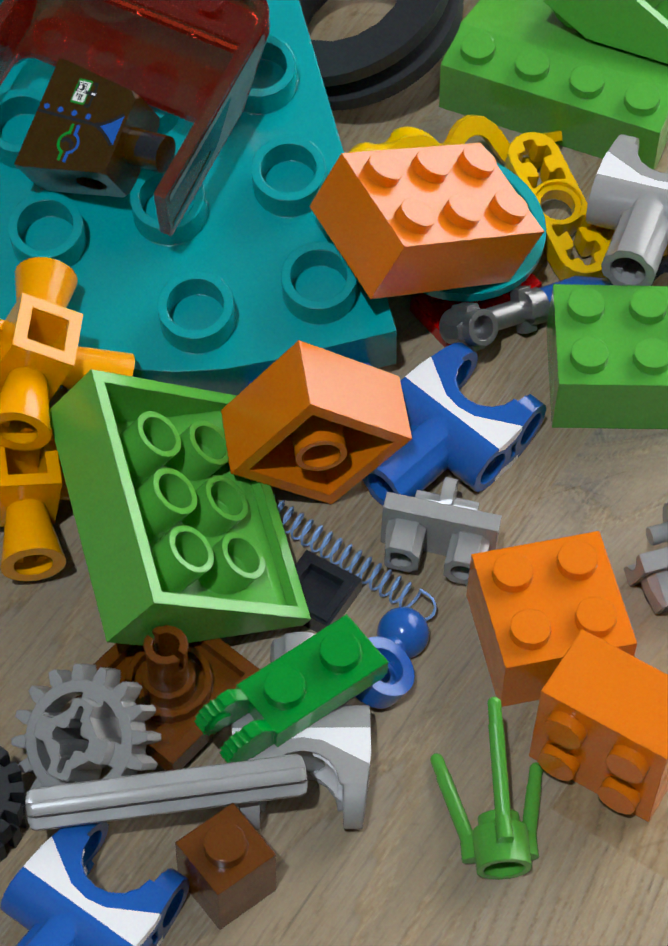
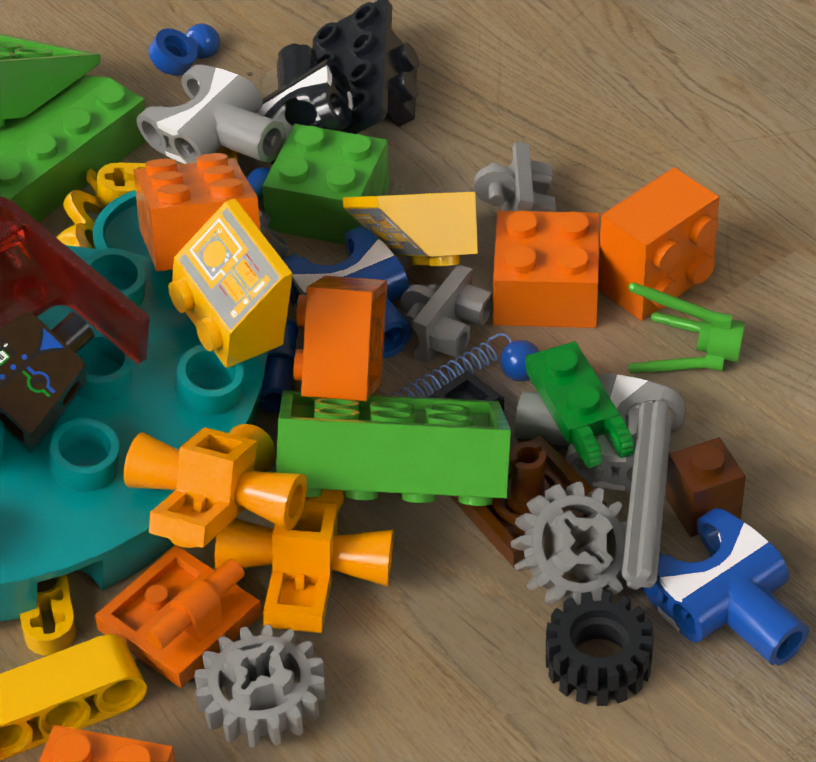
camera: 70 degrees left, 10 degrees down
(275, 274) = (232, 287): none -> yellow slope
(538, 446) = (424, 226): none -> yellow slope

